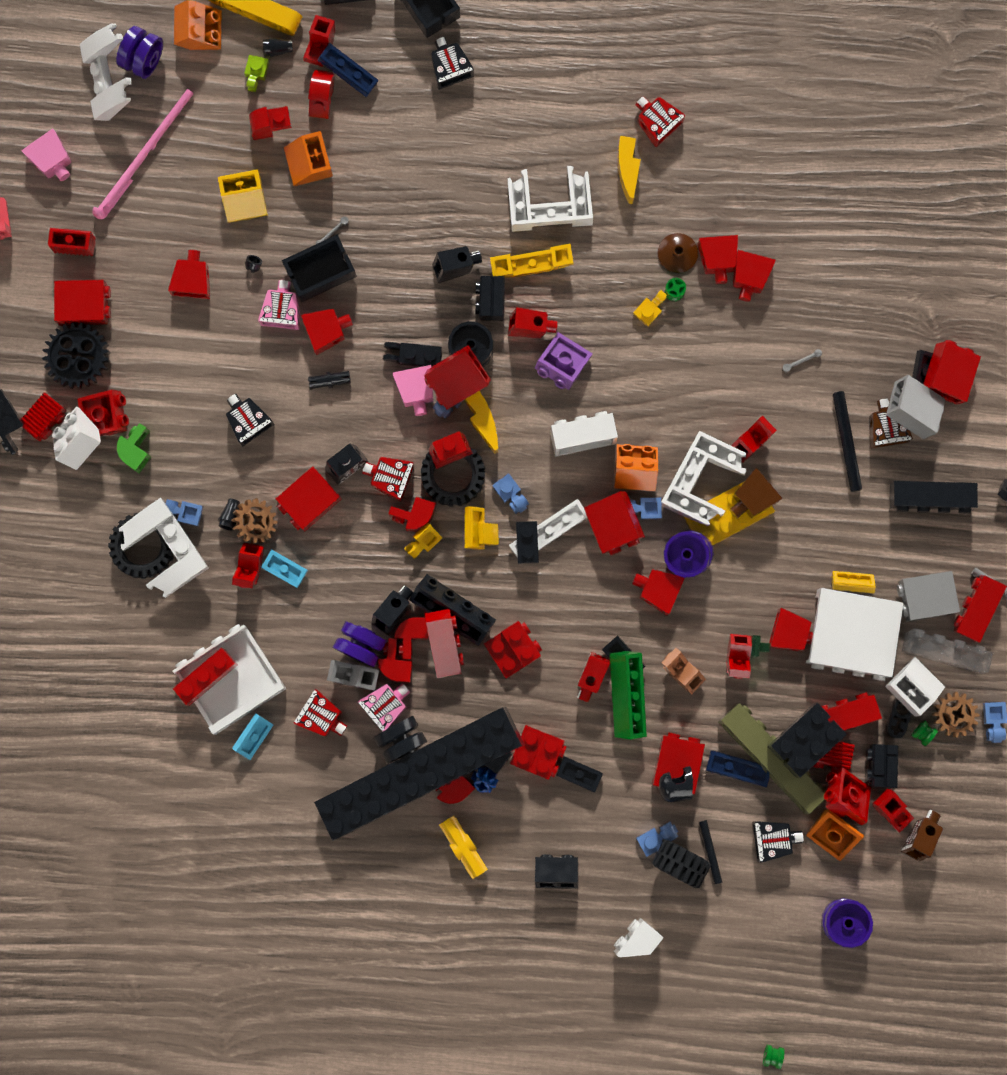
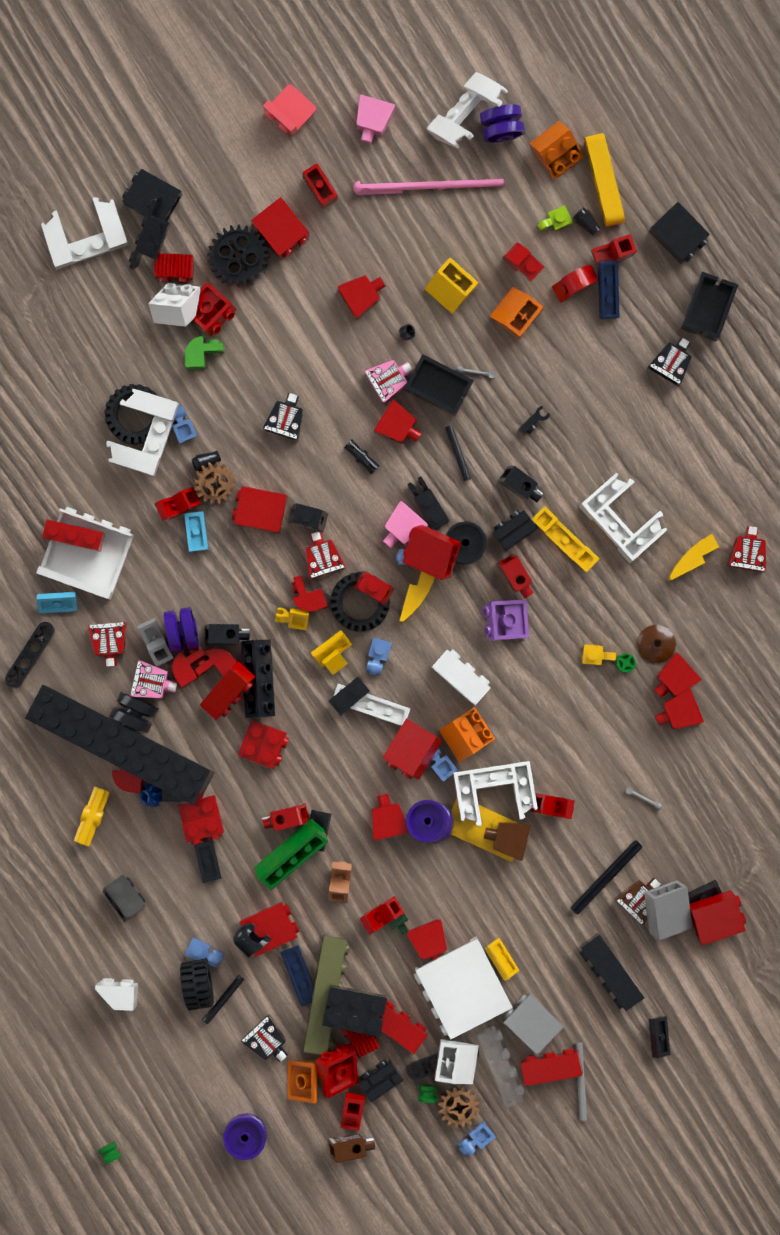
camera: 55 degrees right, 5 degrees up
(282, 794) = (32, 656): none -> black beam
(389, 297) = (458, 453): none -> black bar
(411, 218) = (530, 425): none -> black plate

